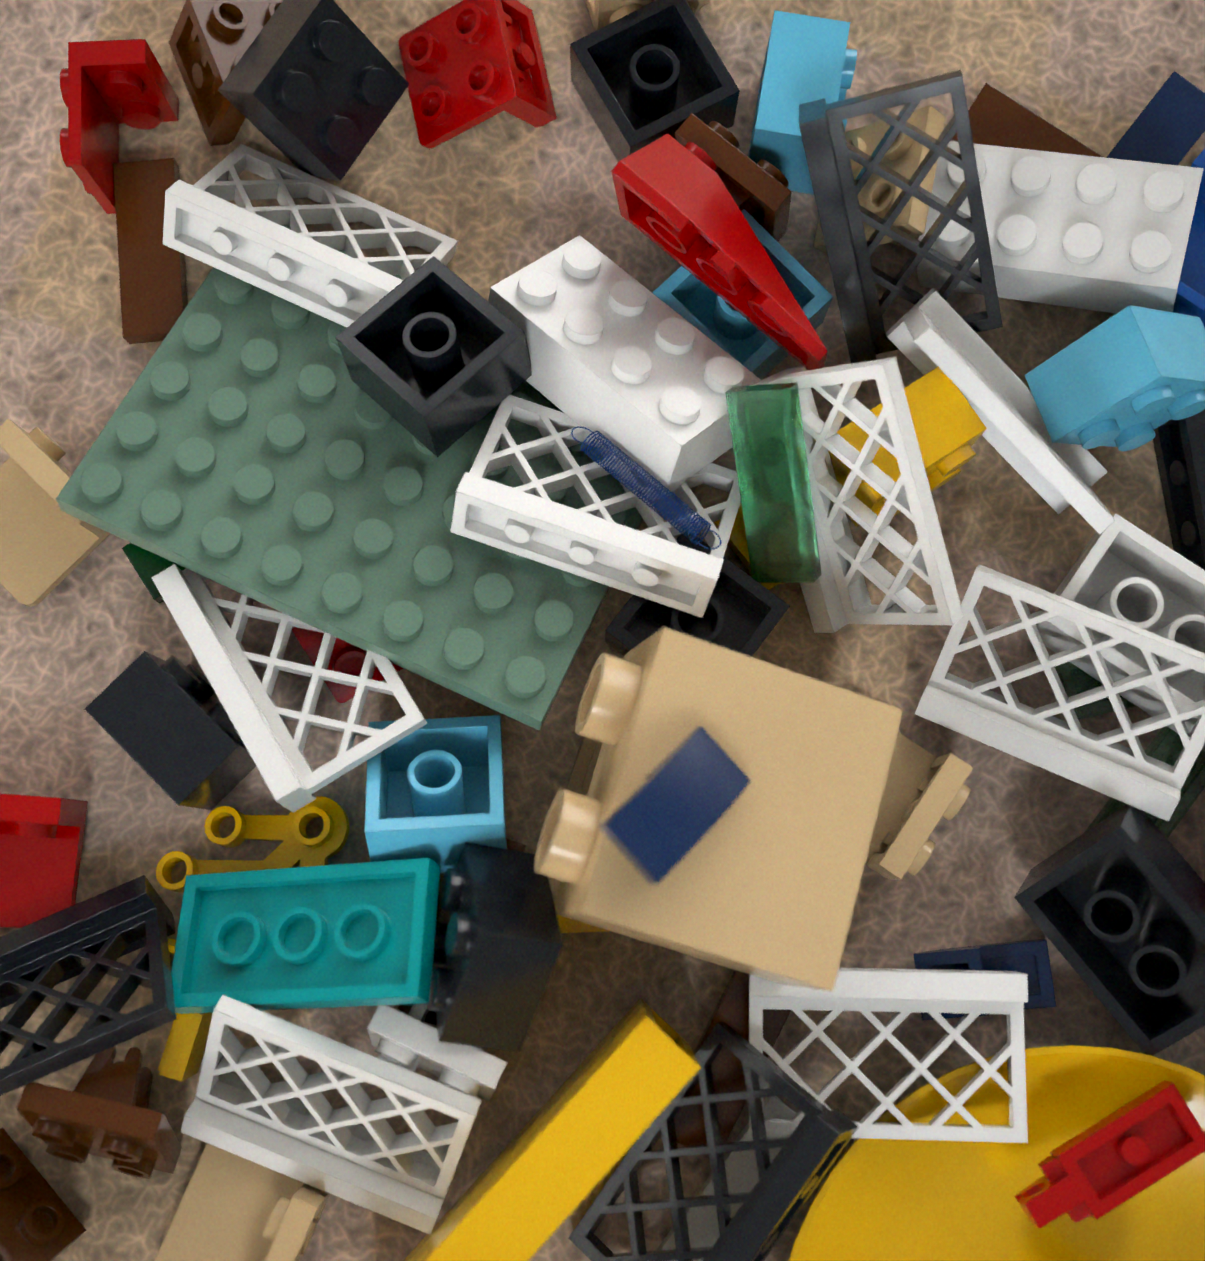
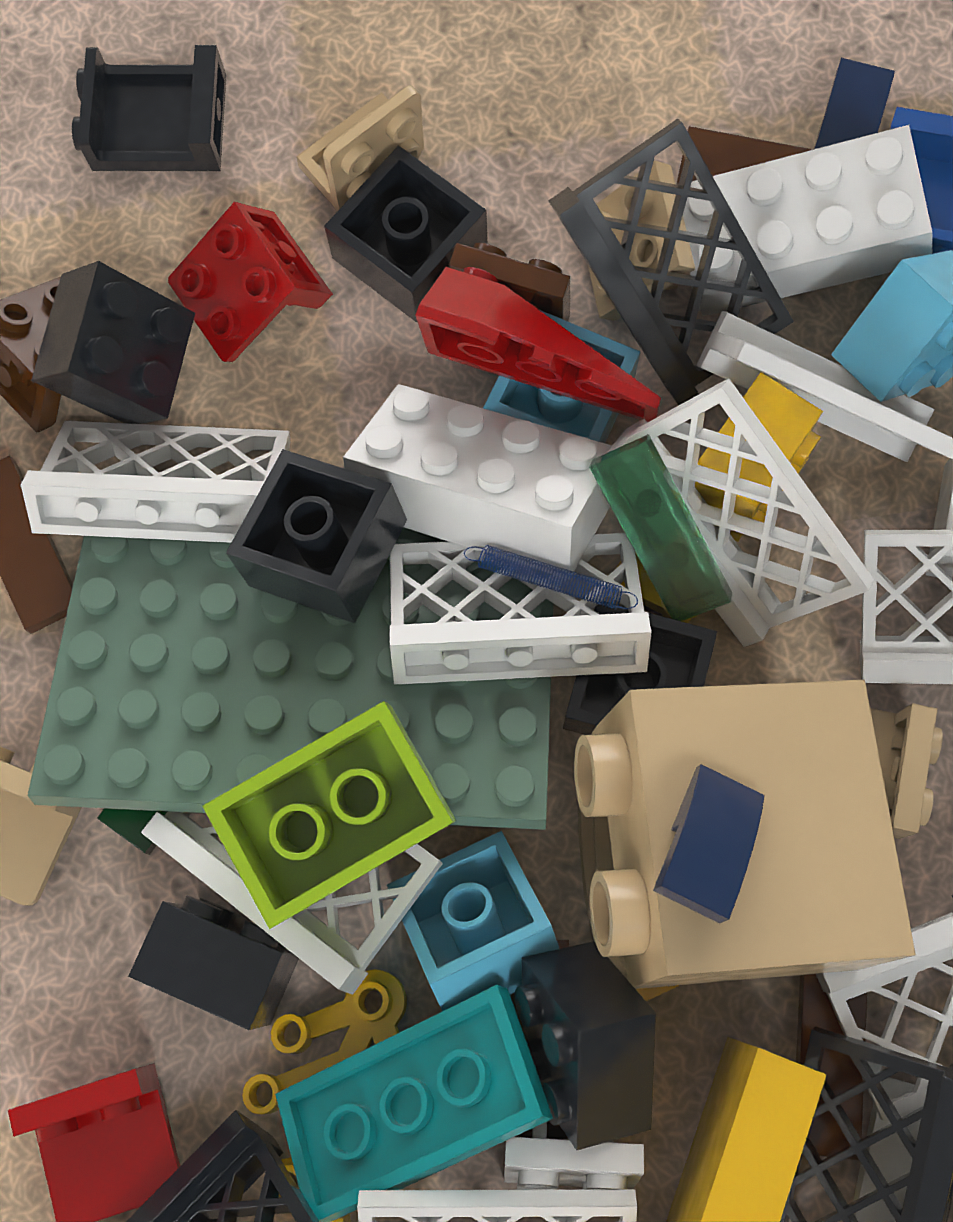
camera: 15 degrees left, 5 degrees down
(330, 630) = (328, 814): none -> lime brick
(801, 65) = (528, 170): medium azure brick -> none

